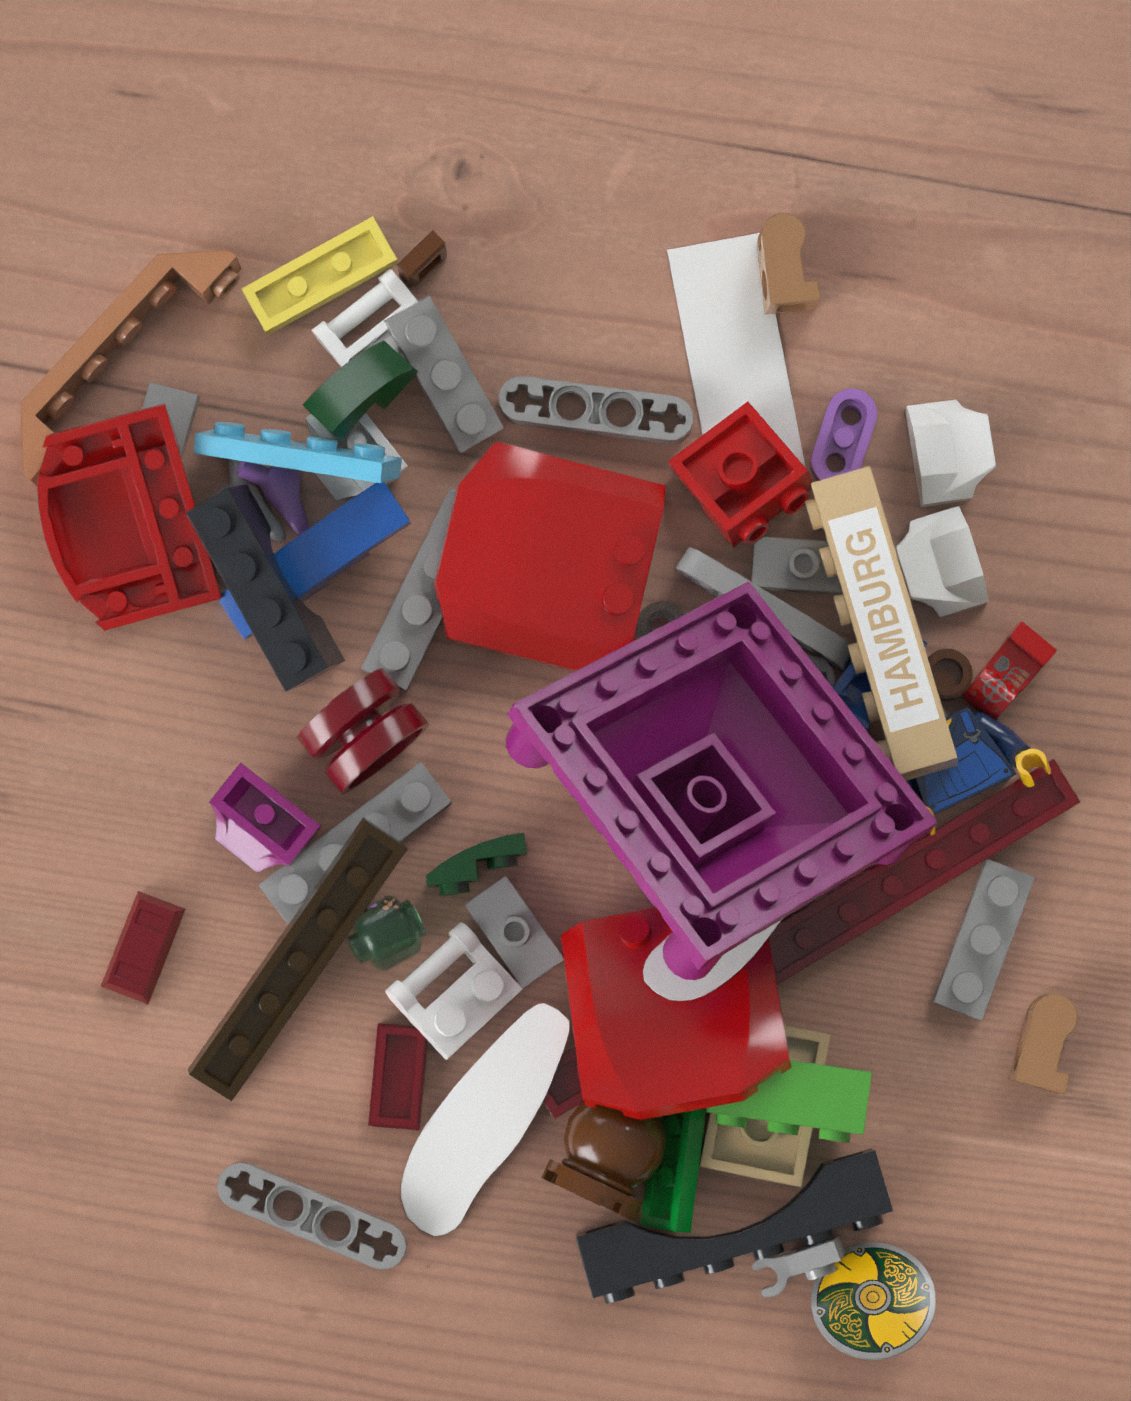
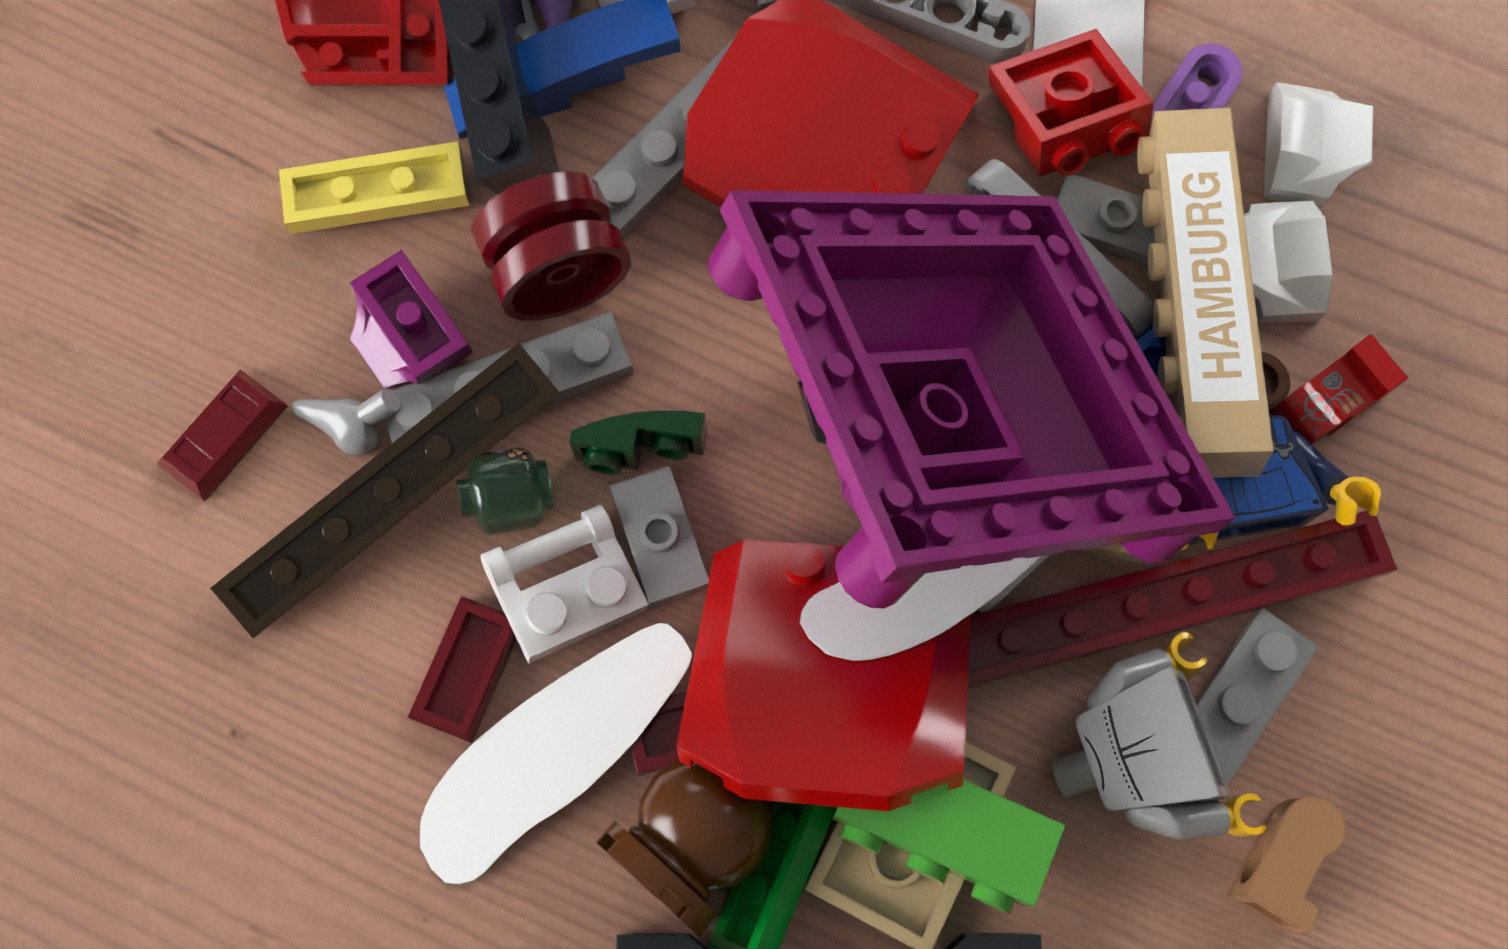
camera: 15 degrees right, 10 degrees down
(194, 709) = (373, 187): none -> light yellow plate
(242, 910) = (348, 420): none -> light grey animal
(309, 1223) = (295, 818): light grey beam -> none
(925, 994) = (1153, 751): none -> light grey torso

